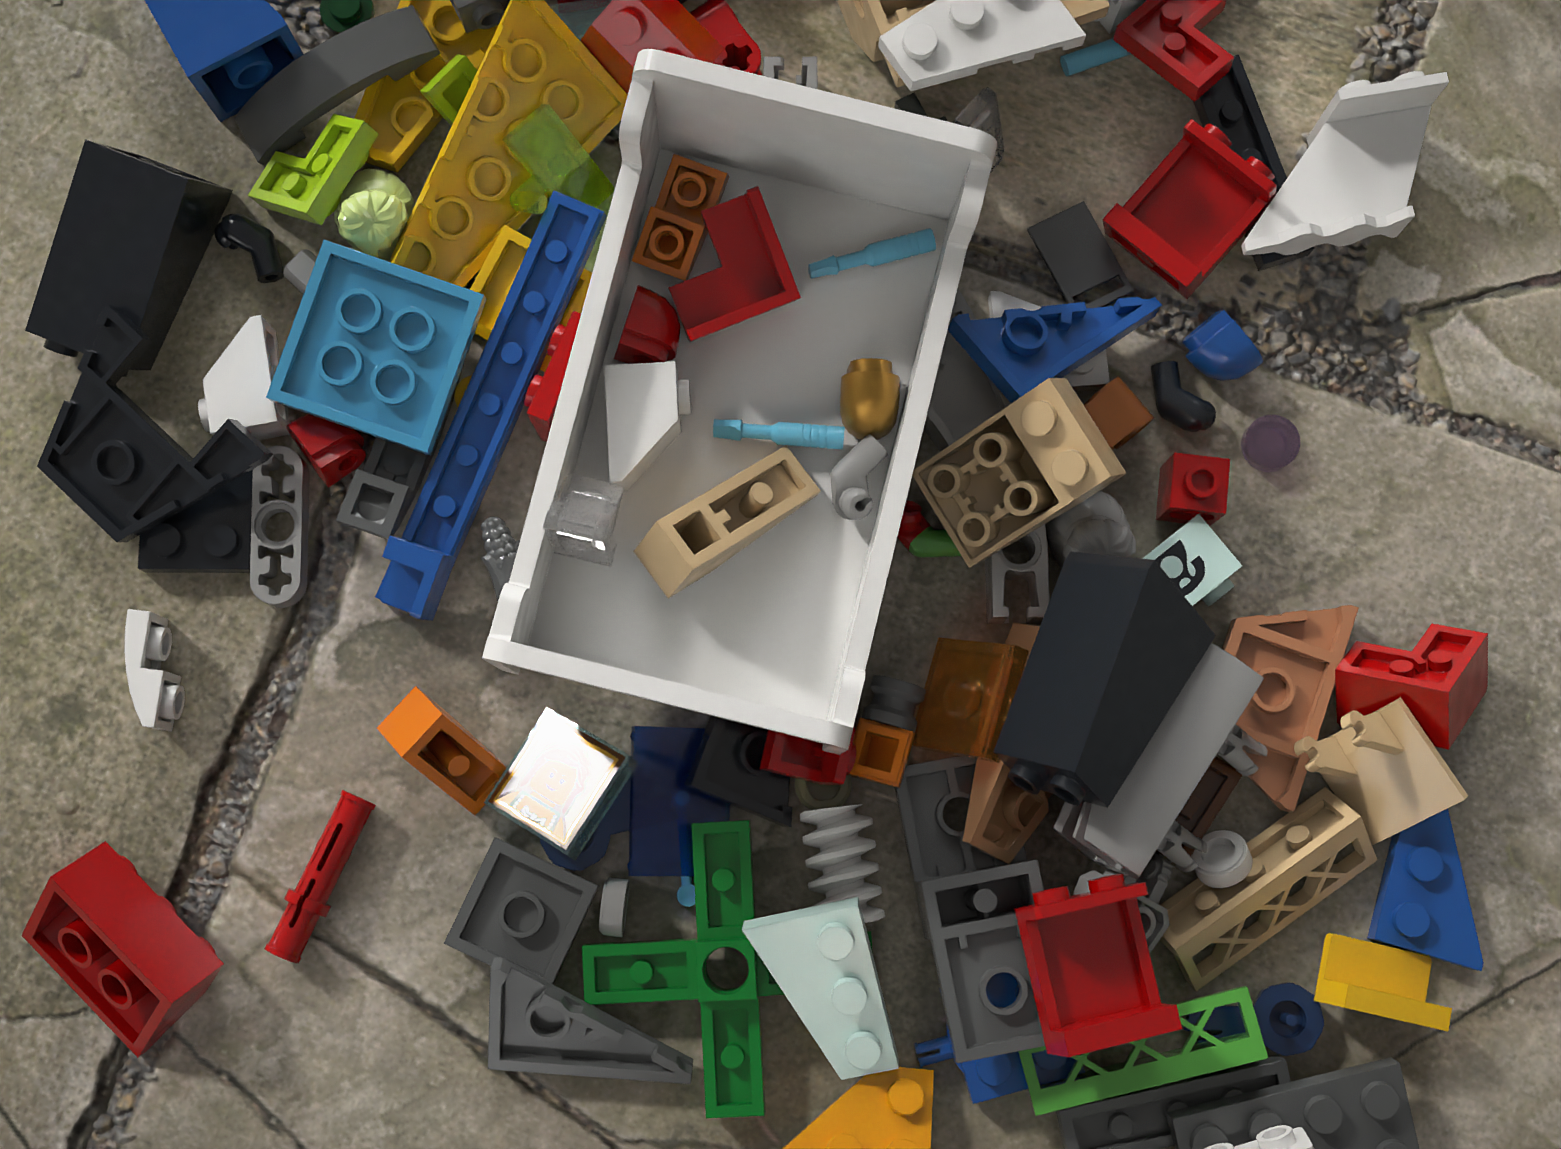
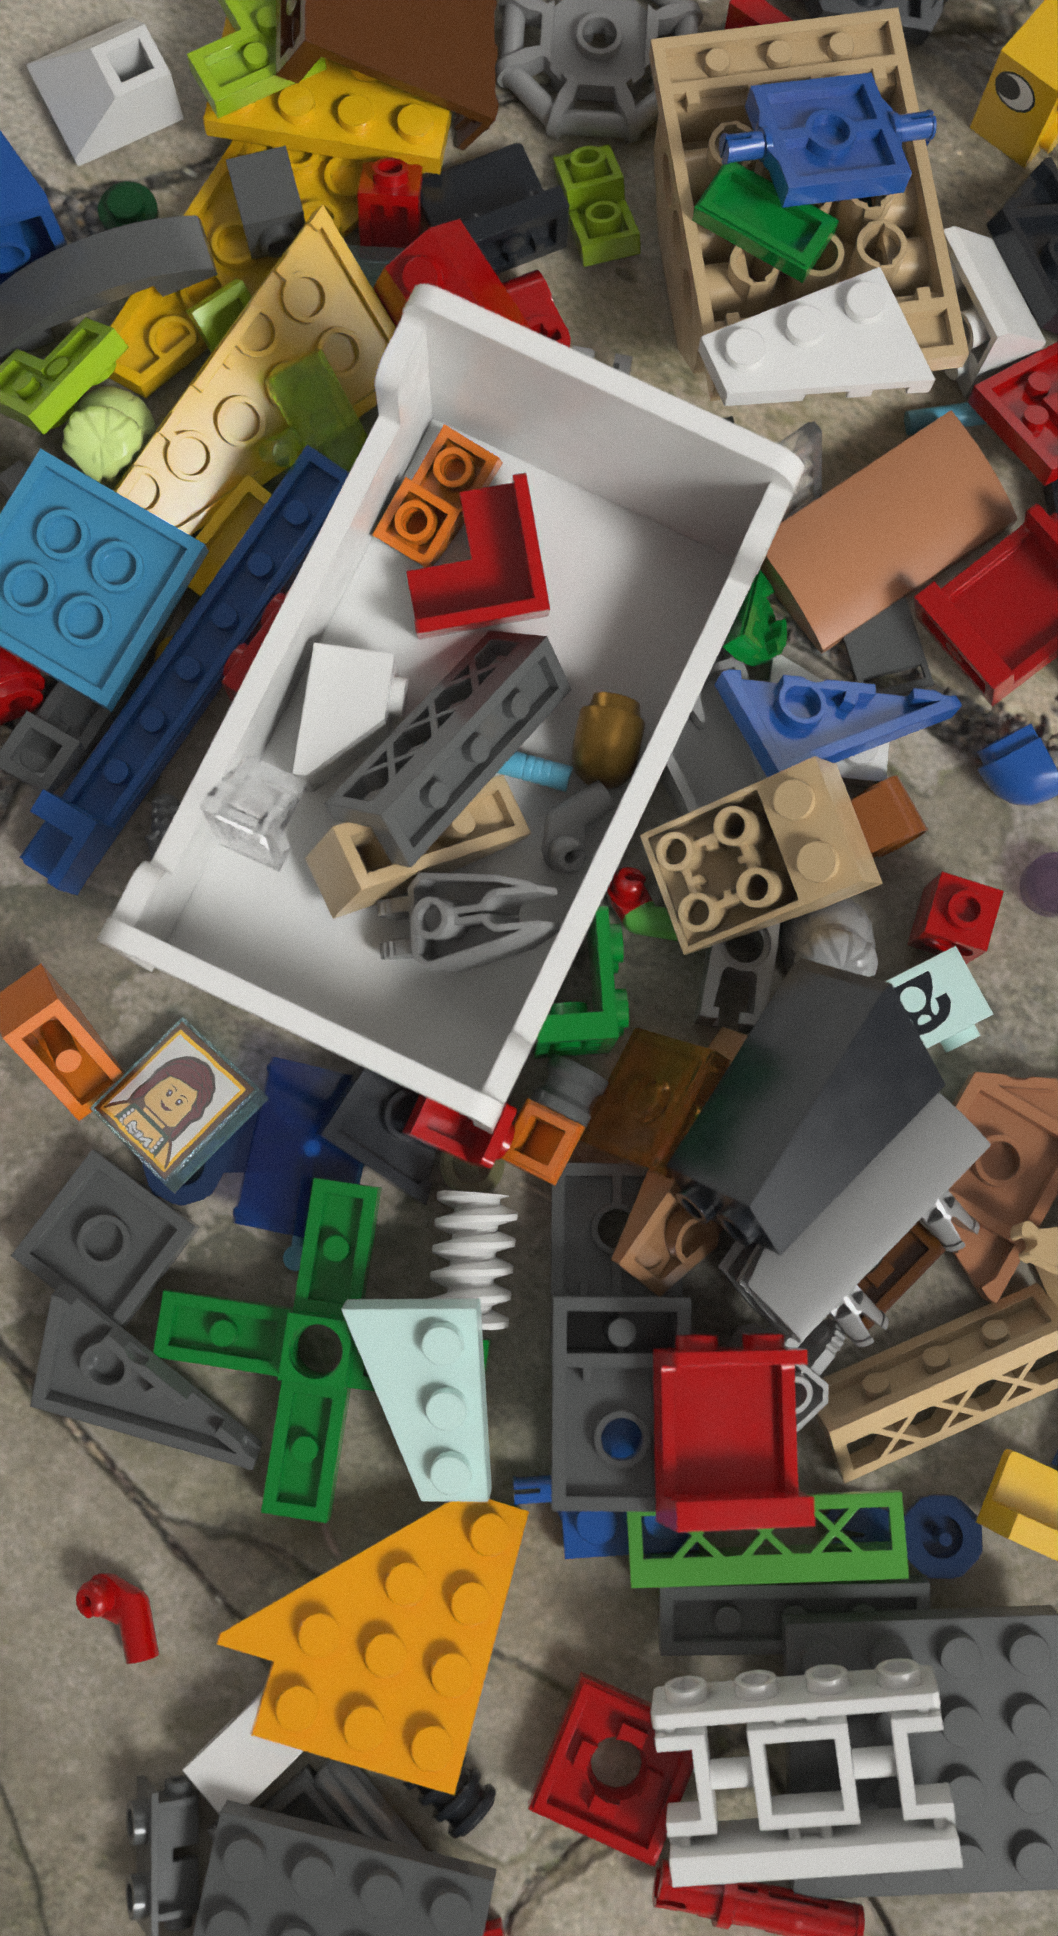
camera: 10 degrees right, 0 degrees up
(614, 907) = (209, 1254): light grey tile -> none
(649, 331) = (374, 614): red piece -> none
(753, 425) = (461, 747): none -> dark grey fence
(780, 577) = (464, 920): none -> light grey hinge
(877, 253) = (649, 581): medium azure piece -> none
(916, 627) = (568, 1026): none -> green bracket
(978, 277) = (755, 632): none -> green tile
(1069, 164) = (886, 531): none -> nougat slope
(1178, 404) = (957, 820): black arm -> none
(1226, 859) = (906, 1343): white tile -> none

